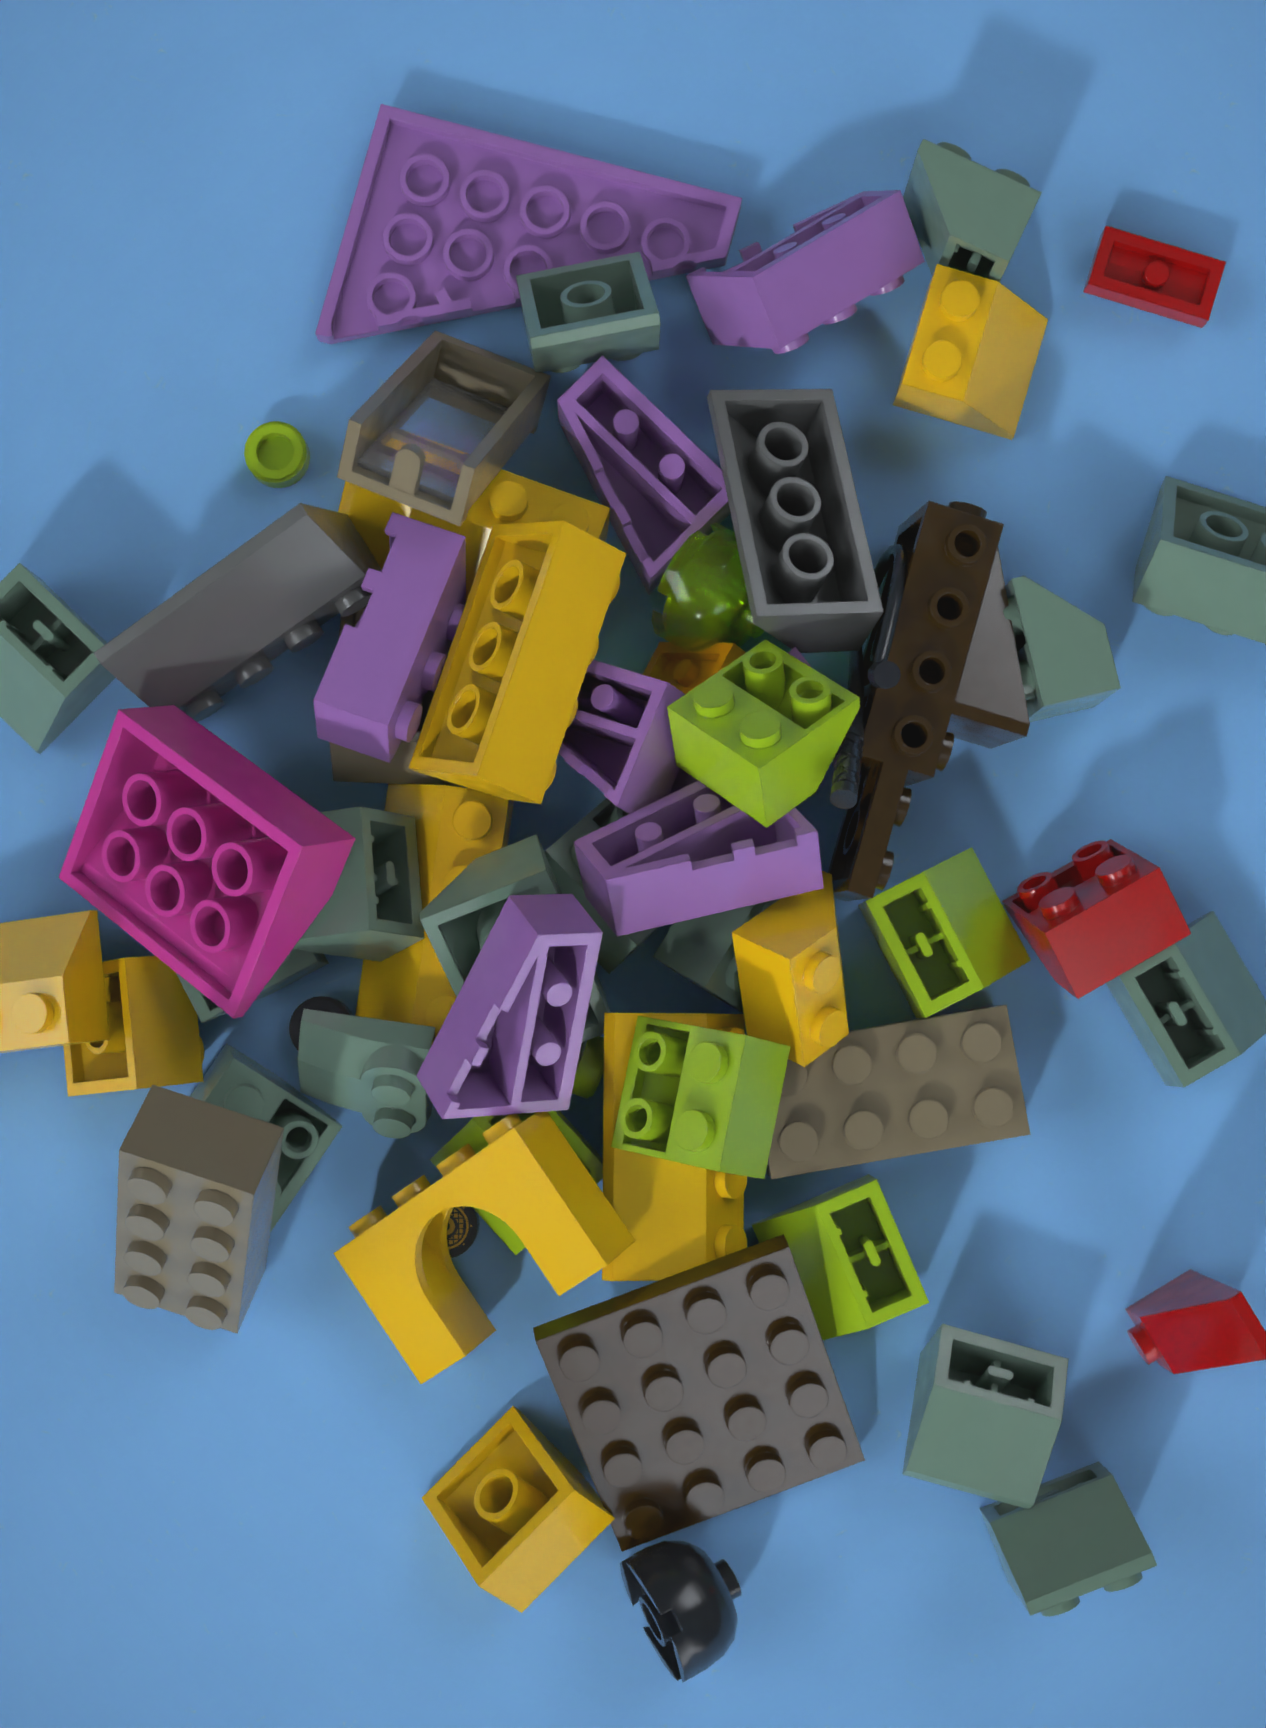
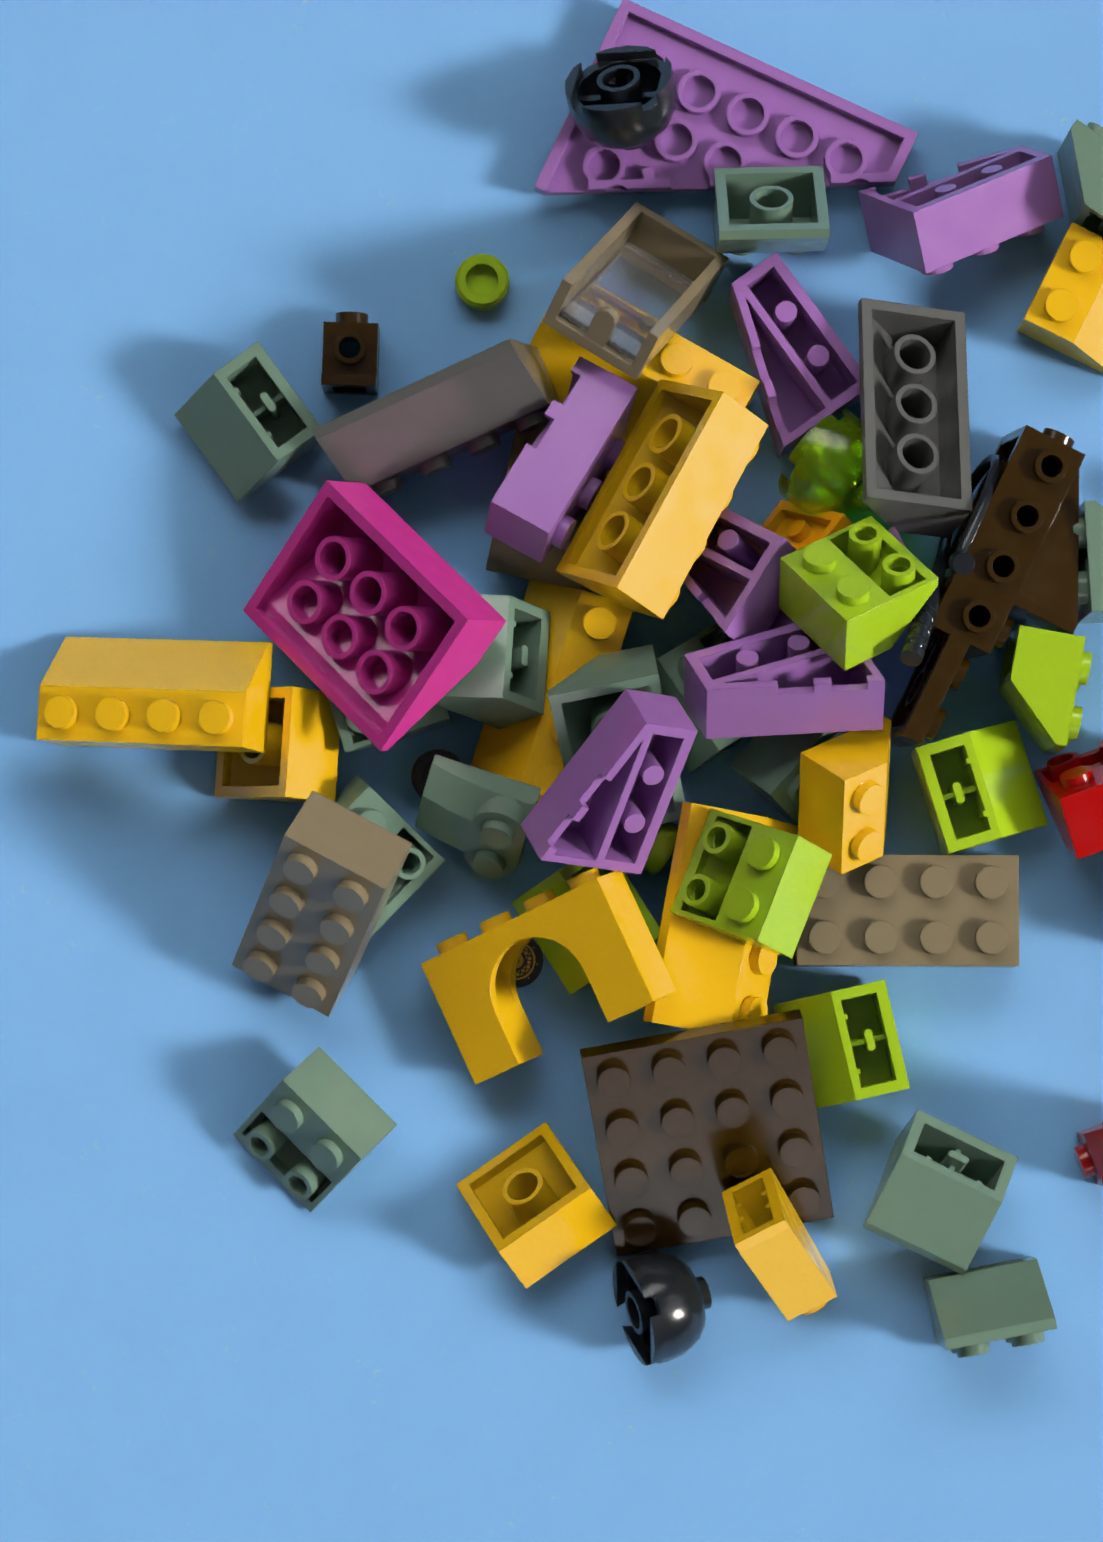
camera: 10 degrees right, 0 degrees up
(149, 580) = (355, 374): none -> dark brown brick
(244, 1465) = (314, 1129): none -> sand green slope
(395, 211) = (622, 97): none -> black cylinder
(804, 1515) = (777, 1245): none -> yellow slope
(997, 800) = (1041, 684): none -> lime slope

